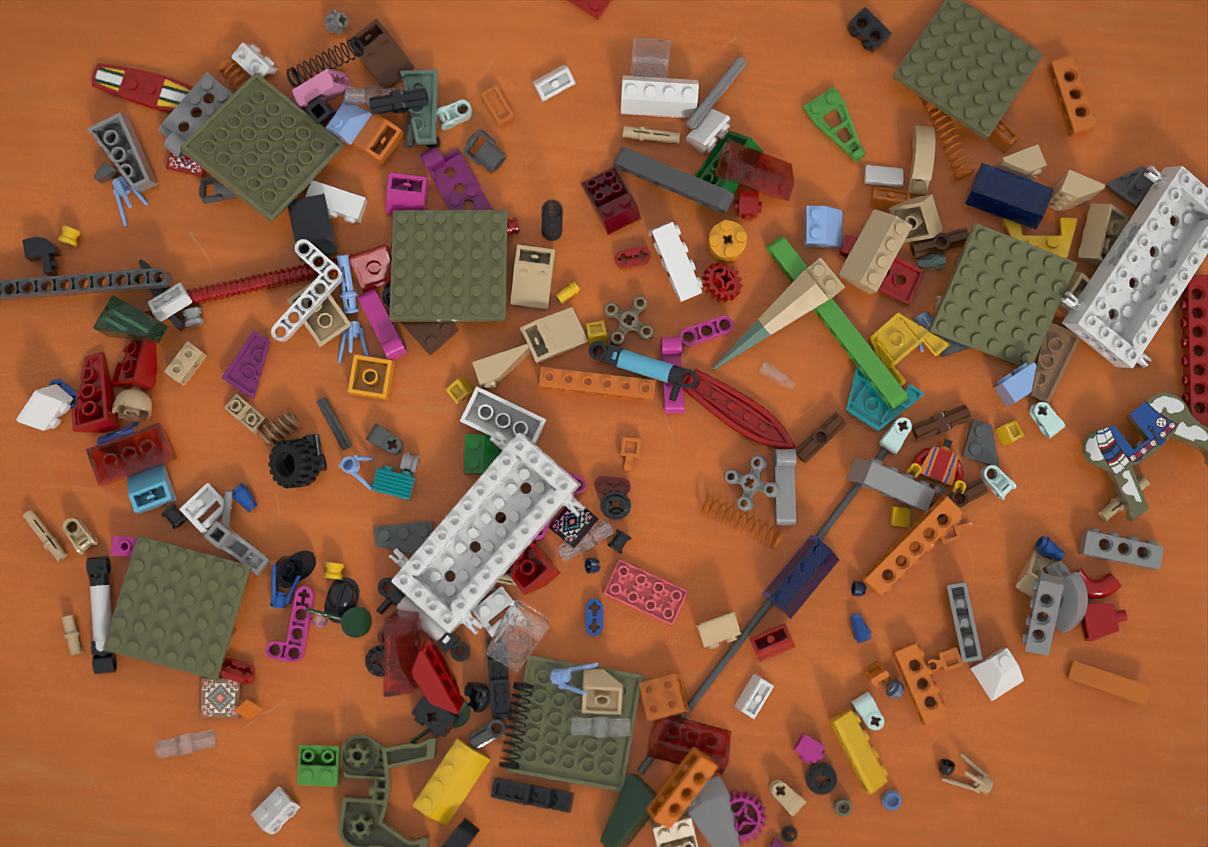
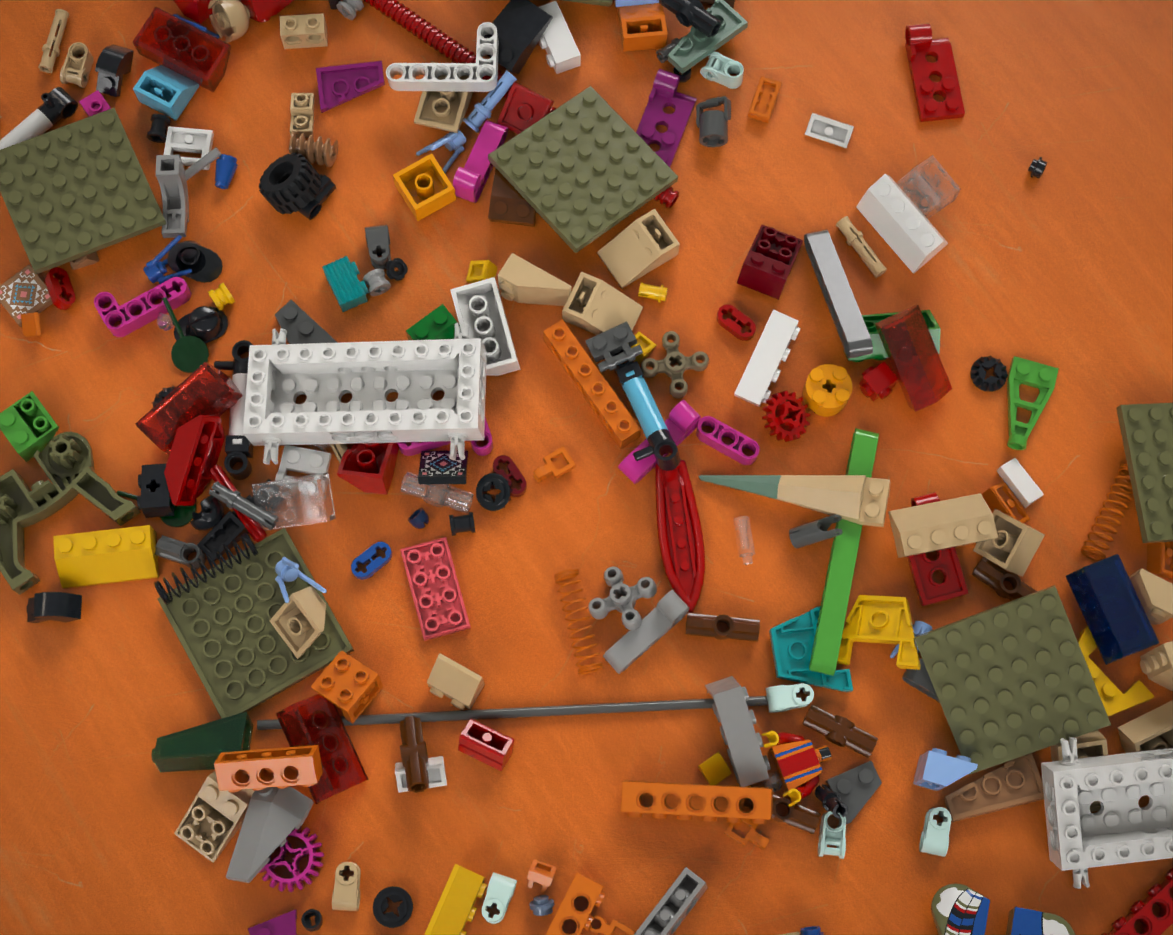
camera: 50 degrees right, 10 degrees down
(102, 512) = (111, 66): none -> black brick
(334, 423) = (356, 193): dark grey axle -> none
(351, 466) = (328, 230): light blue plant -> none
(406, 192) = (617, 84): dark pink slope -> none
(411, 437) = (402, 269): none -> black plate
(488, 672) = (252, 526): none -> red axle
(496, 670) = (235, 500): none -> dark grey pin
(532, 795) = (153, 641): black slope -> none
(552, 226) = (713, 207): black piece -> none
(583, 347) = (611, 342): none -> dark grey plate
(600, 726) = (269, 647): clear piece -> none
(706, 134) = (911, 290): white slope -> none
(716, 93) = (952, 269): light grey axle -> none
(742, 691) = (414, 754): none -> reddish brown piece
(795, 138) = (992, 383): none -> black gear
(801, 576) = (574, 721): clear blue slope -> none
(809, 331) = (814, 531): none -> dark grey piece
(809, 749) = (412, 869): dark pink brick -> none
(822, 227) = (921, 465): light blue slope -> none
(858, 588) = (610, 787): dark blue hinge -> none
(860, 629) = (571, 822): blue cone -> none
(872, 27) = (1145, 356): black brick -> none
(923, 159) = (1067, 501): tan arch -> none
(933, 262) = (984, 594): clear light blue cone -> none
(979, 465) = (831, 801): none -> black pin
(1009, 432) = (890, 808): yellow slope -> none

